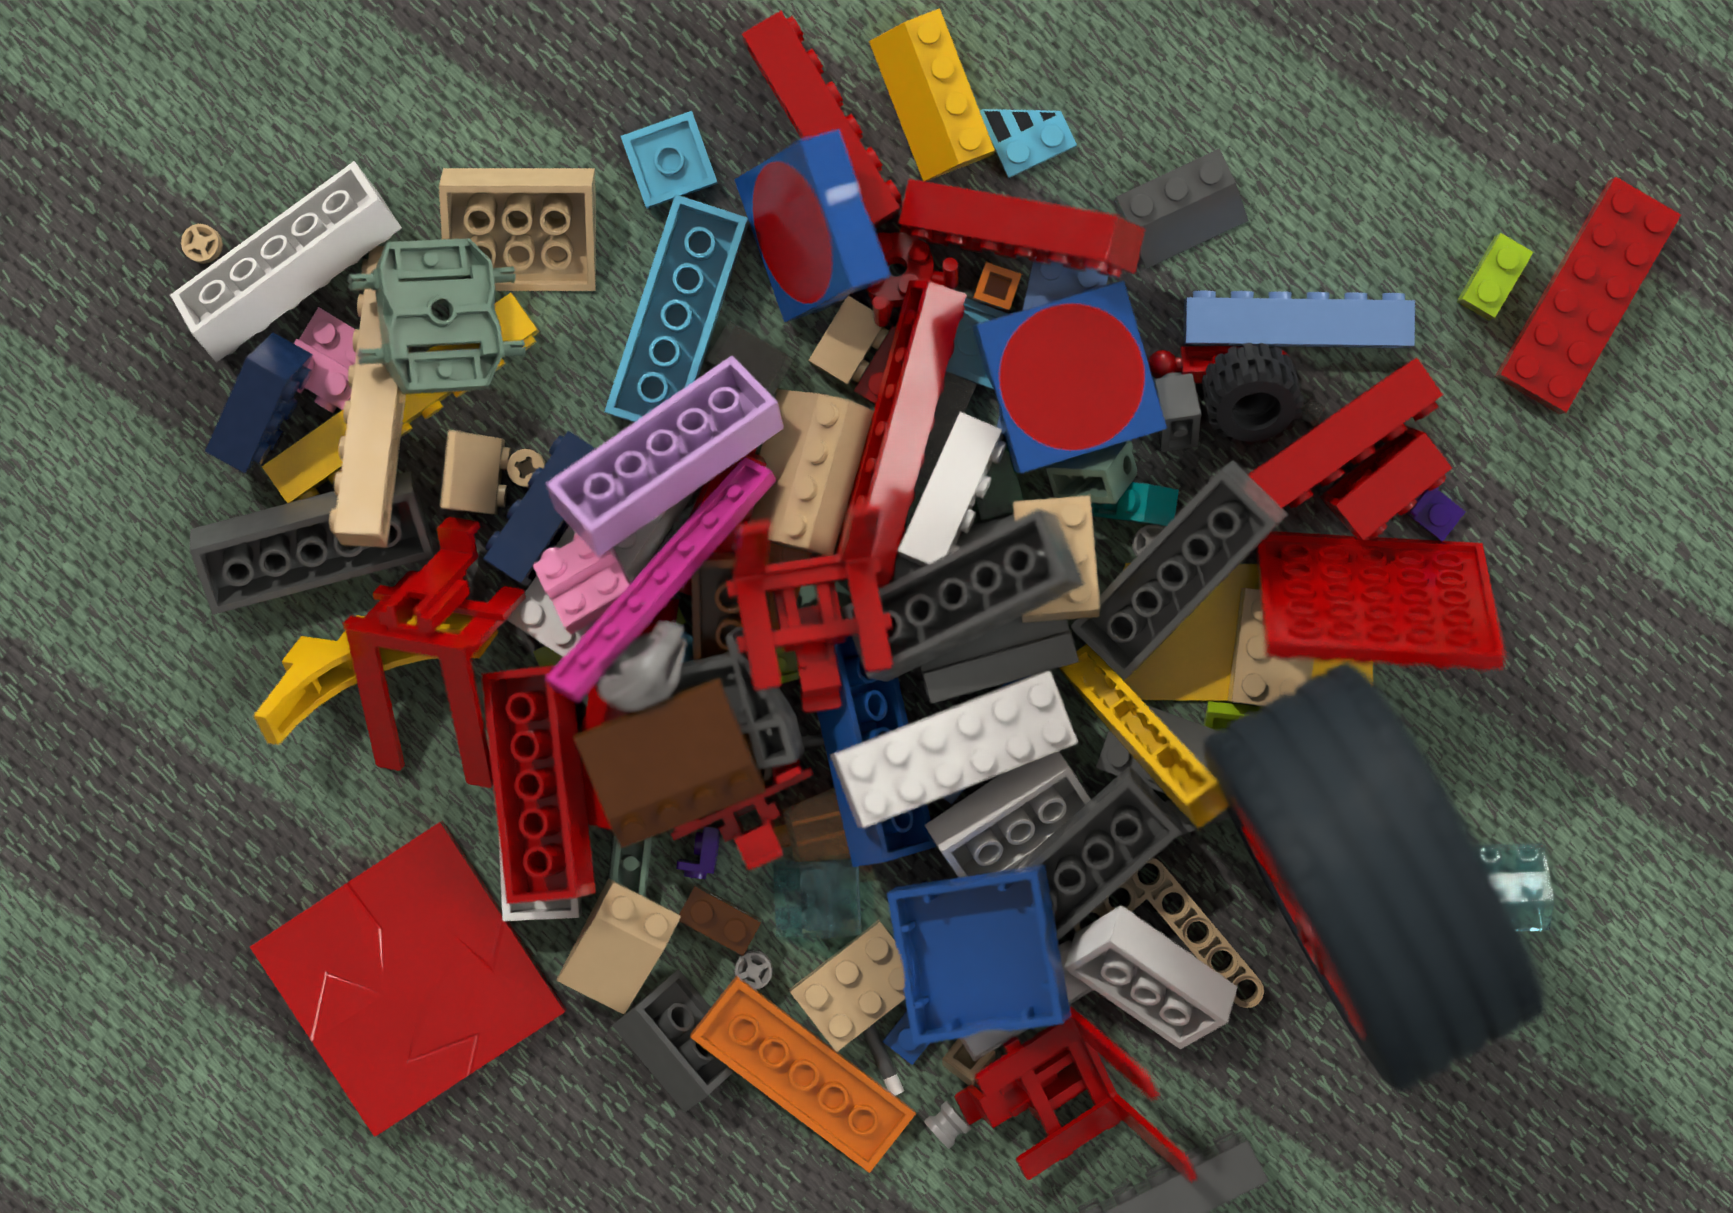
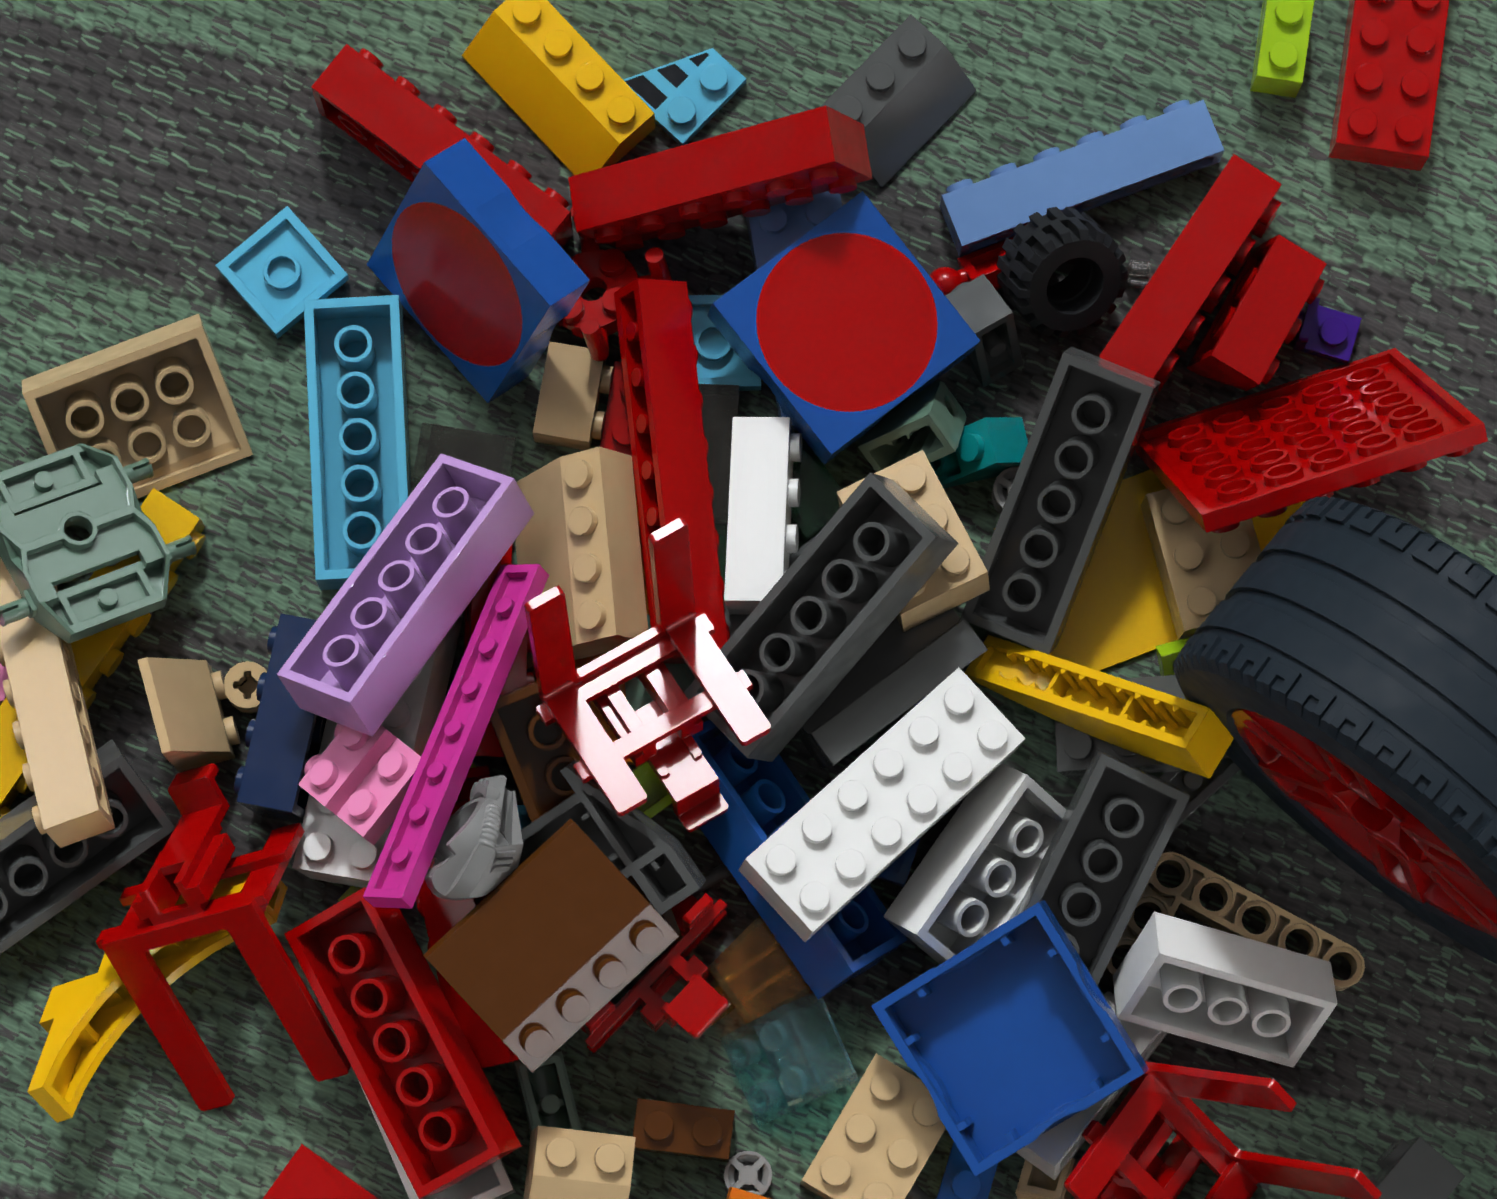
camera: 30 degrees left, 10 degrees down
(707, 847) = (634, 1050): dark purple bracket -> none
(997, 287) = (718, 265): orange brick -> none

